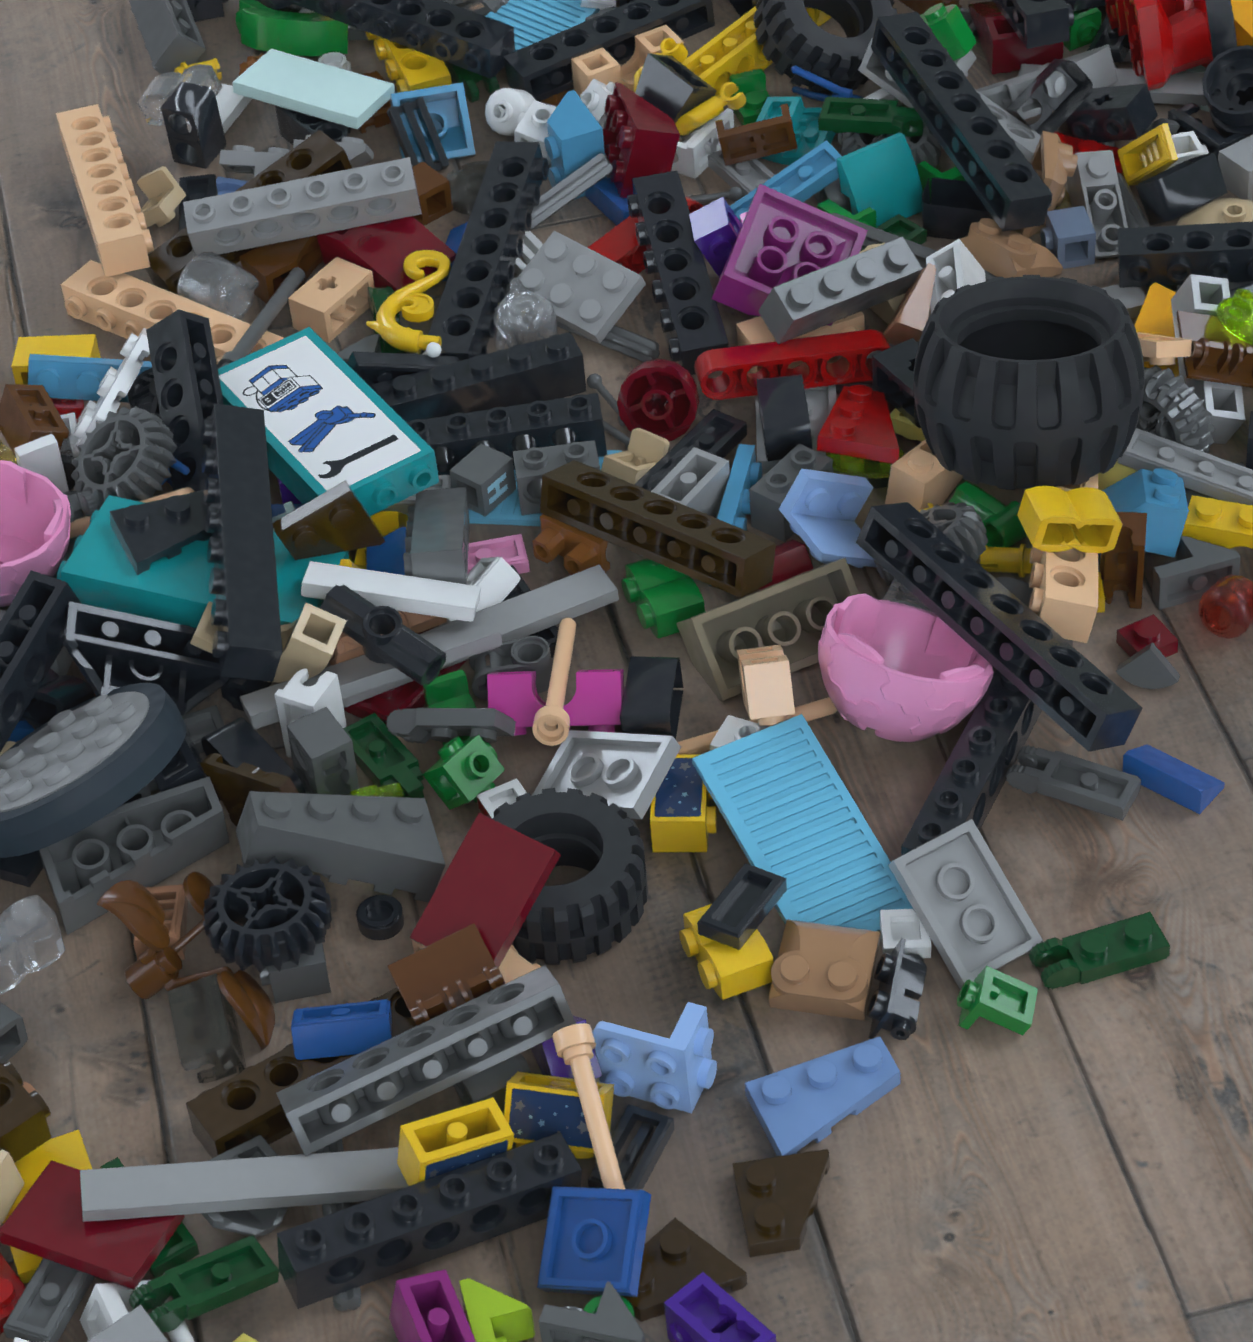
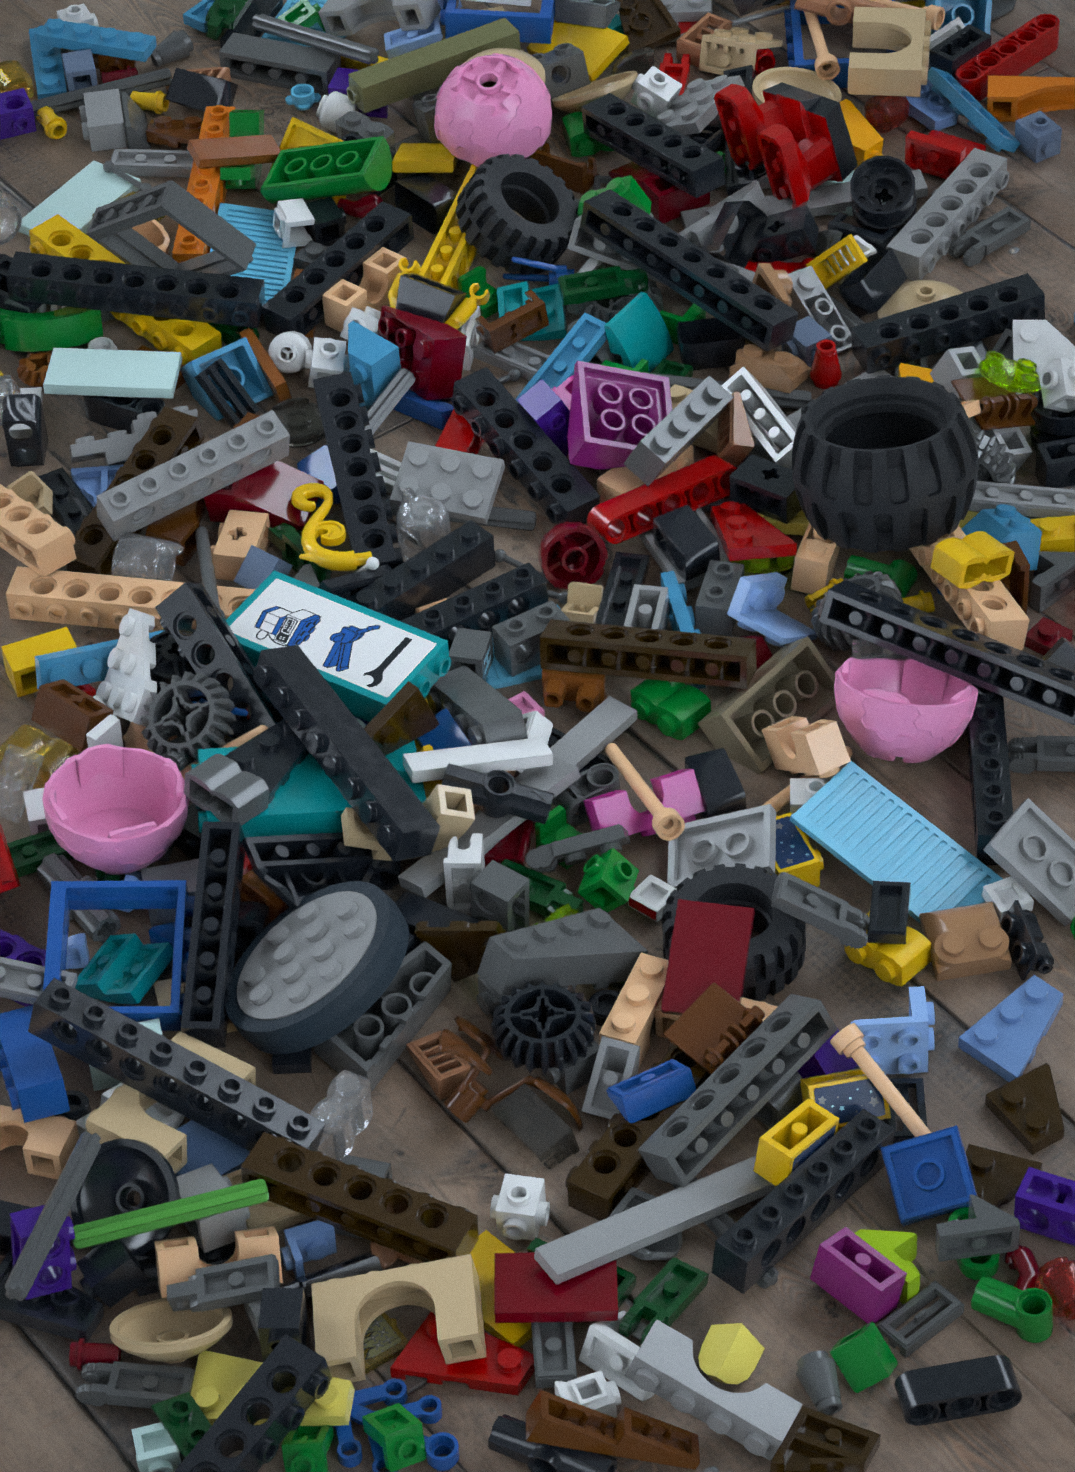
camera: 25 degrees left, 0 degrees up
(93, 545) = (226, 790): none -> dark grey brick
(124, 1116) = (520, 1207): none -> white brick
(323, 983) = (613, 1064): none -> light grey slope
(332, 325) = (258, 567): none -> sand blue brick
(381, 937) = (636, 1004): none -> light nougat arch
(478, 129) = (272, 374): none -> dark orange tile
(649, 877) = (820, 910): none -> dark grey hinge
(1075, 260) = (825, 366): none -> red cone

